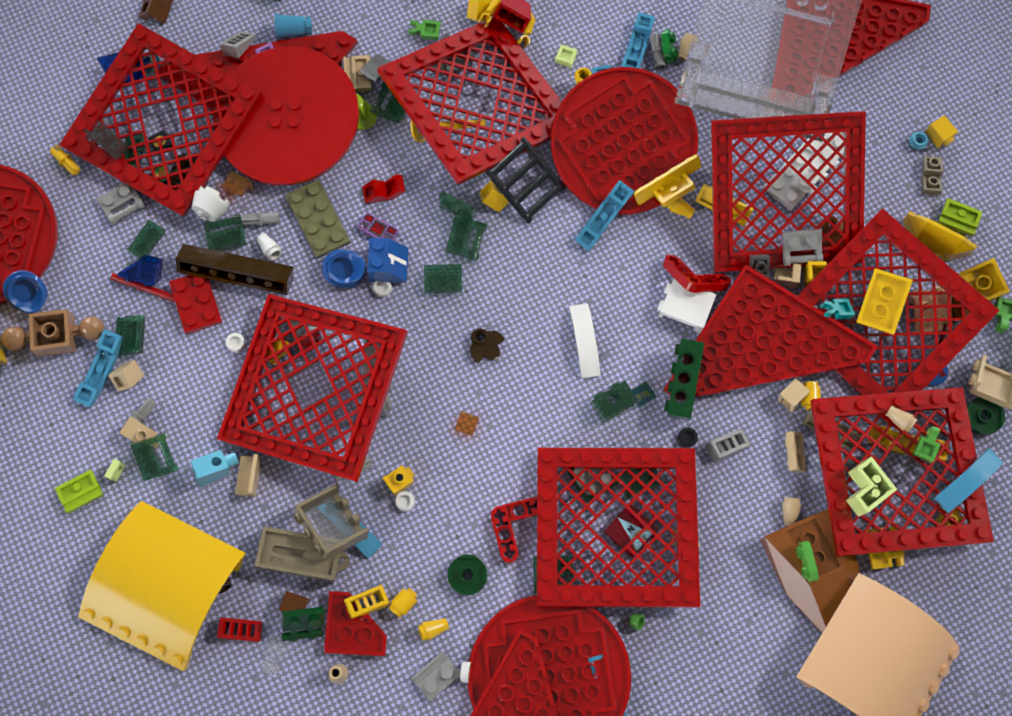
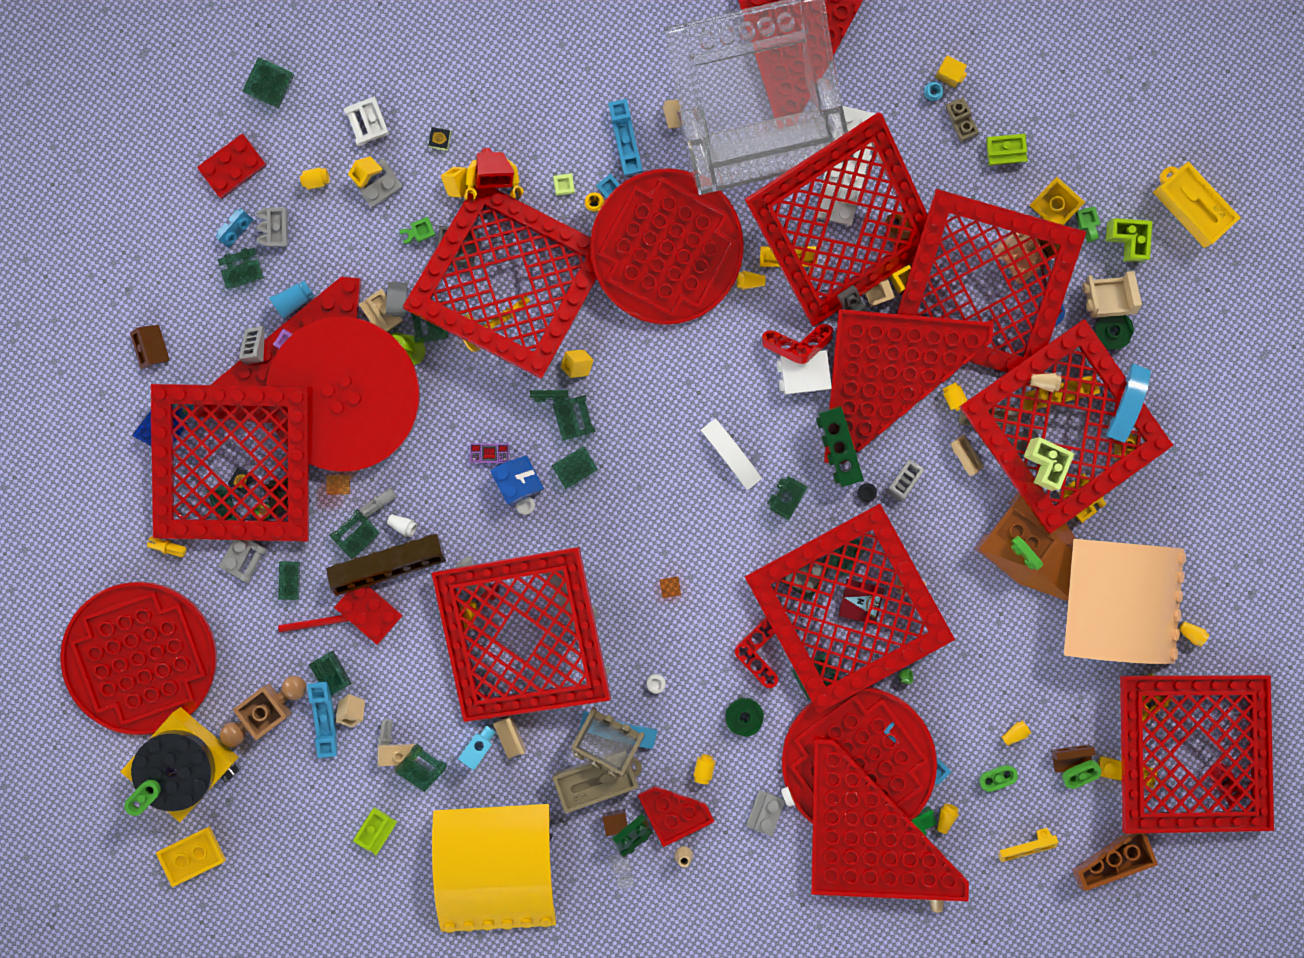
camera: 30 degrees left, 15 degrees up
(25, 291) = (215, 689): blue piece -> none
(108, 141) = (196, 512): clear smoke panel -> none
(114, 470) = (394, 797): yellowish green tile -> none
(144, 270) = (304, 610): clear blue slope -> none
(209, 204) = (326, 518): white cone -> none
(222, 627) = (584, 872): red slope -> none
(235, 342) = (426, 627): white tile -> none
(318, 219) = (429, 473): olive plate -> none
(343, 268) = (481, 508): blue piece -> none
(379, 590) = (684, 775): yellow slope -> none
(386, 190) = (472, 413): red slope -> none
(399, 486) = (637, 676): yellow brick -> none
(431, 629) = (740, 777): yellow cone -> none
(487, 347) = (649, 509): dark brown plate -> none
(547, 173) = (612, 316): black bar -> none
(604, 215) = (685, 329): dark azure slope -> none
(643, 394) = (808, 475): tile -> none
(657, 52) = (647, 133): light grey axle -> none
(669, 50) = (652, 118): green plate -> none
(671, 184) = (733, 268): yellow bracket -> none
(791, 510) = (988, 509): tan cone -> none
(793, 395) = (940, 405): tan panel -> none
(799, 241) = (878, 257): light grey plate -> none
(839, 308) = (942, 305): teal plate -> none
(884, 301) = (979, 277): yellow plate -> none
(927, 447) = (1080, 395): bright green plate -> none
(938, 238) = (994, 184): yellow wedge -> none

